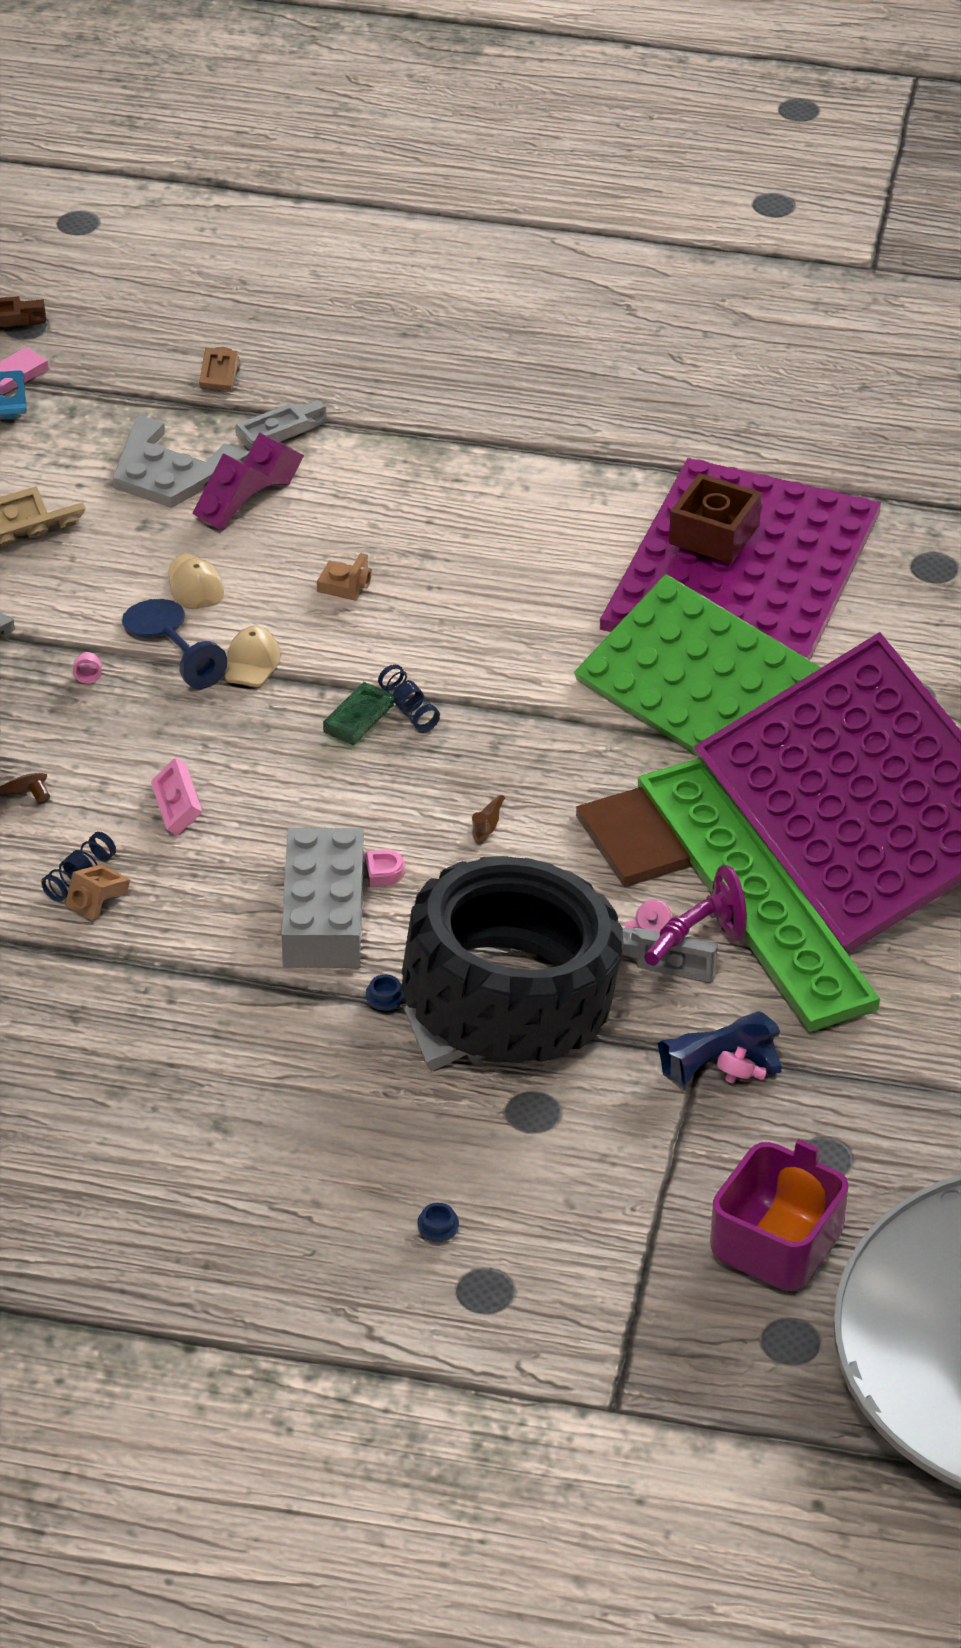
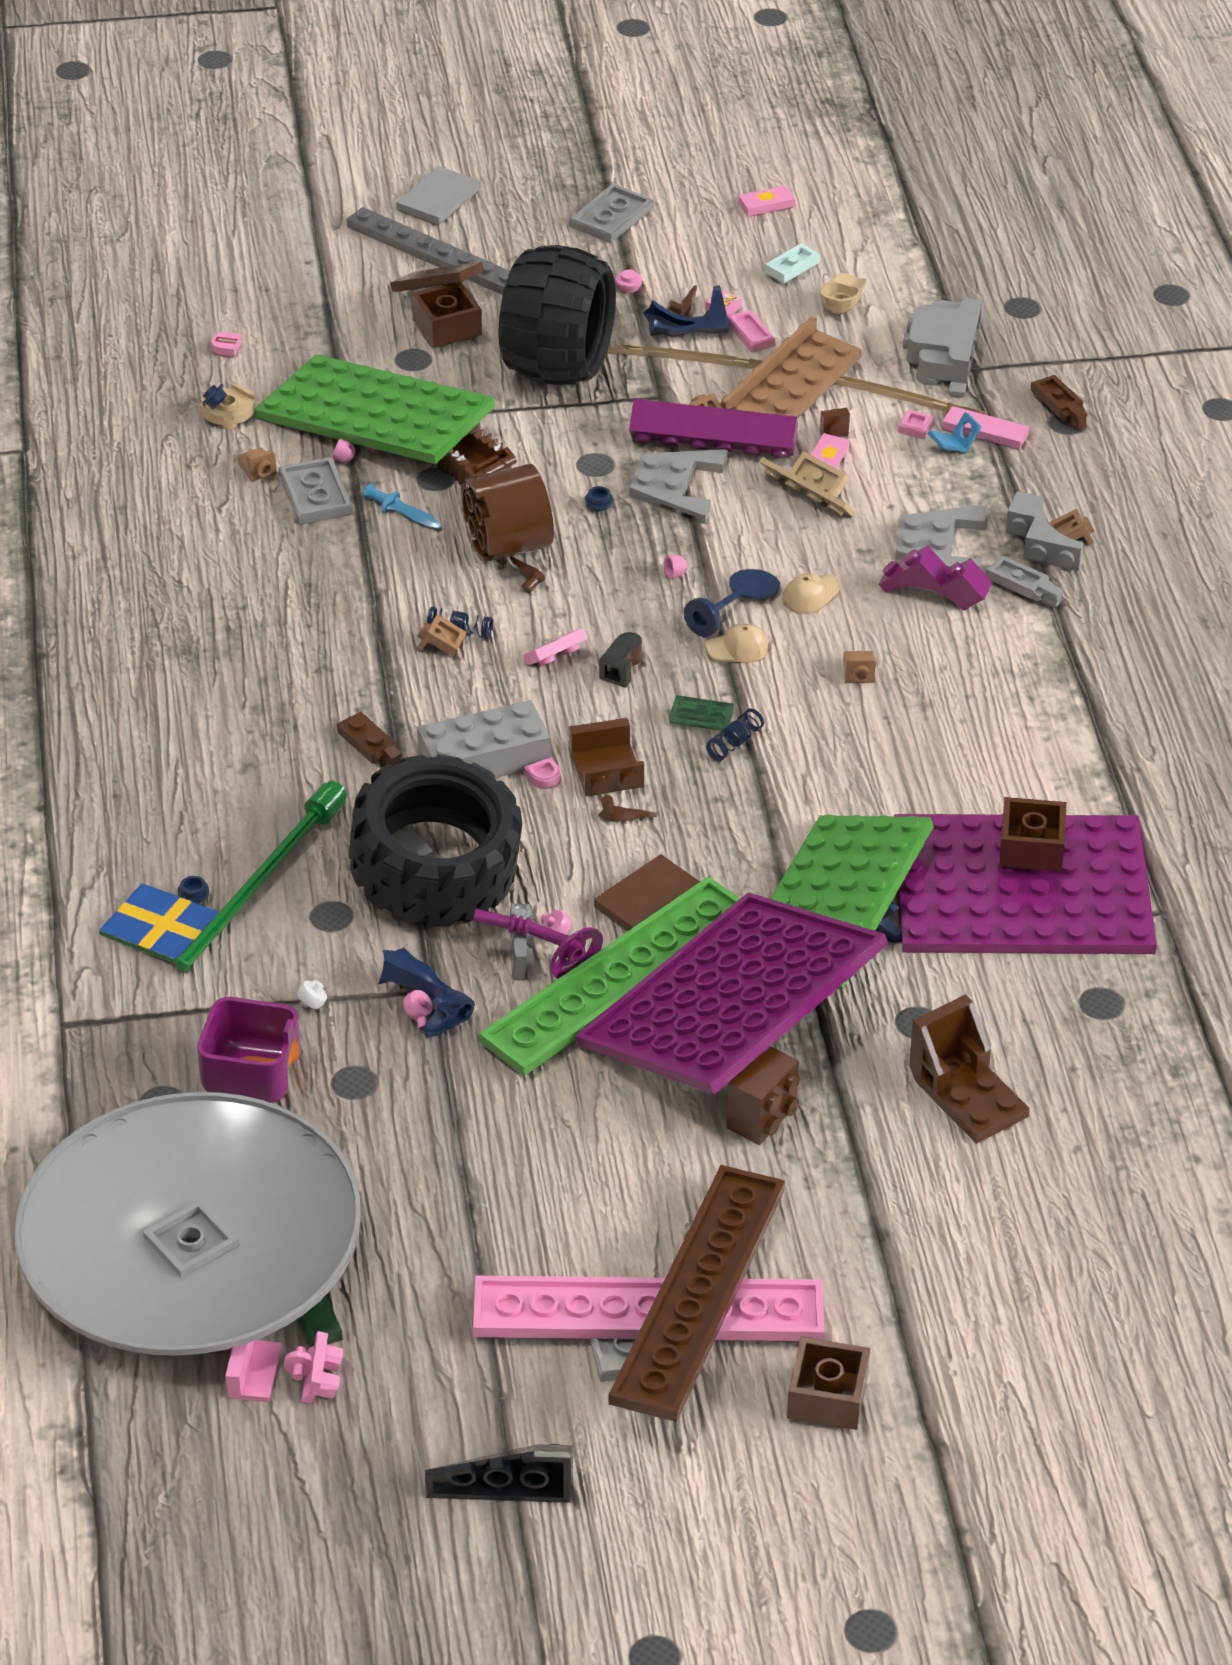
camera: 70 degrees right, 0 degrees up
(226, 393) = (1042, 541): none -> light grey arch
(229, 751) = (619, 658): none -> pearl dark grey leg
(246, 998) = (369, 739): none -> reddish brown hinge
(396, 813) = (605, 757): none -> reddish brown panel
(487, 1259) = (183, 929): none -> flag
(675, 1153) = (312, 994): none -> white piece

